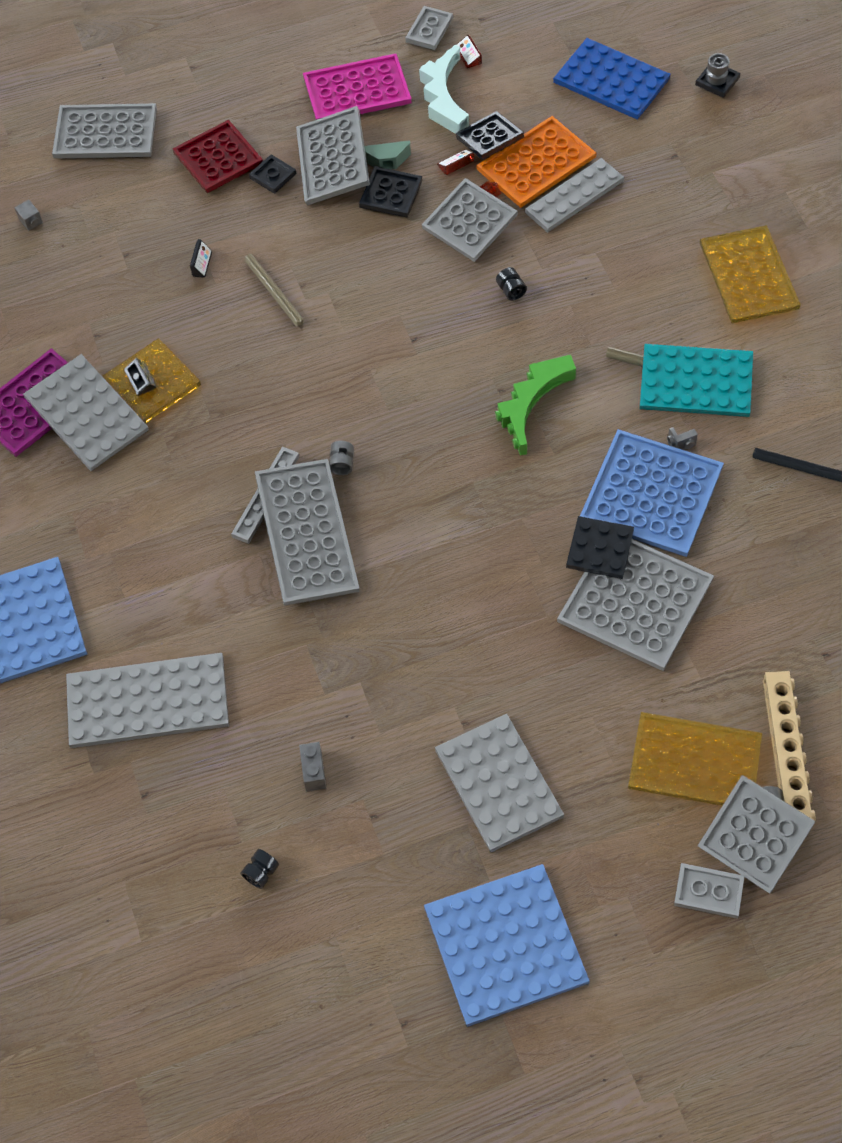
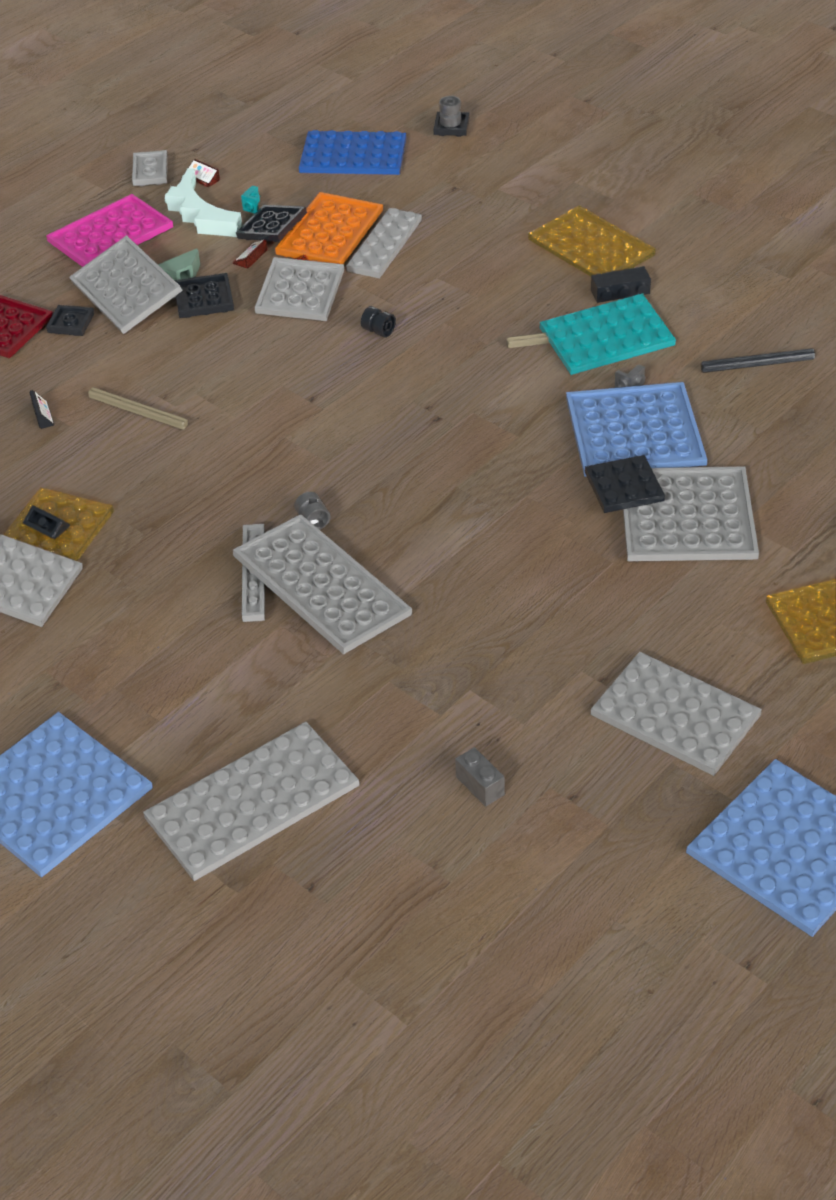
camera: 30 degrees left, 15 degrees down
(257, 871) = (493, 891): black wheel -> none
(490, 99) = (251, 199): none -> teal bracket
(541, 379) = (461, 385): bright green arch -> none
(743, 331) = (620, 284): none -> black brick

